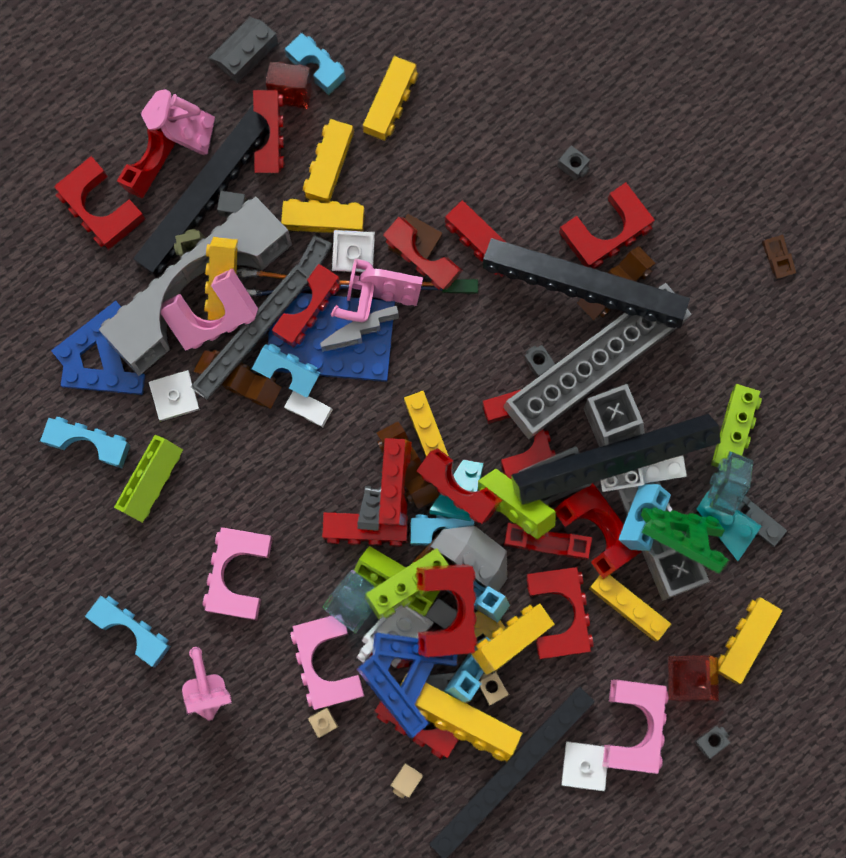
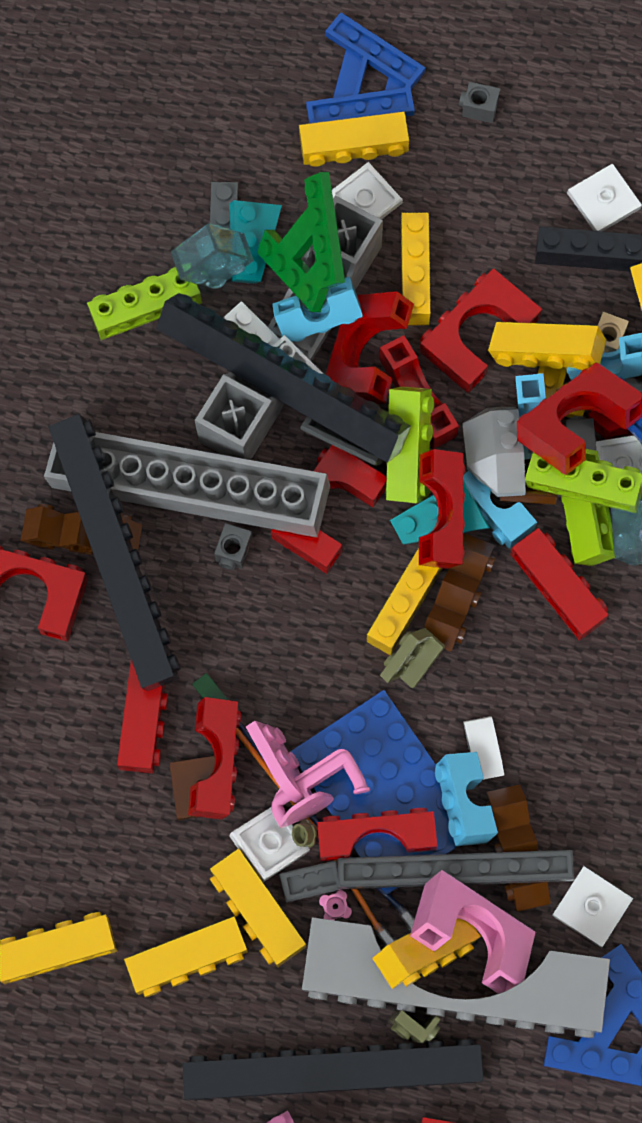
camera: 130 degrees left, 5 degrees down
(230, 203) = (325, 1023): dark grey brick -> none
(268, 105) = (181, 1070): red arch -> none
(288, 254) = (339, 899): none -> bright pink plate
(292, 81) = (130, 1075): clear red brick -> none
(304, 51) = (76, 1045): medium azure arch -> none
(342, 271) = (304, 834): none -> olive plate
(352, 332) = (368, 759): light grey slope -> none
(370, 509) = (536, 588): dark grey plate -> none
(389, 407) = (413, 658): none -> olive bracket
(395, 463) = (492, 578): red arch -> none
(652, 701) = (545, 150): bright pink arch -> none
(693, 678) = (437, 156): clear red brick -> none
(702, 615) = (369, 192): none -> white plate
(776, 657) = (363, 49): none -> blue plate

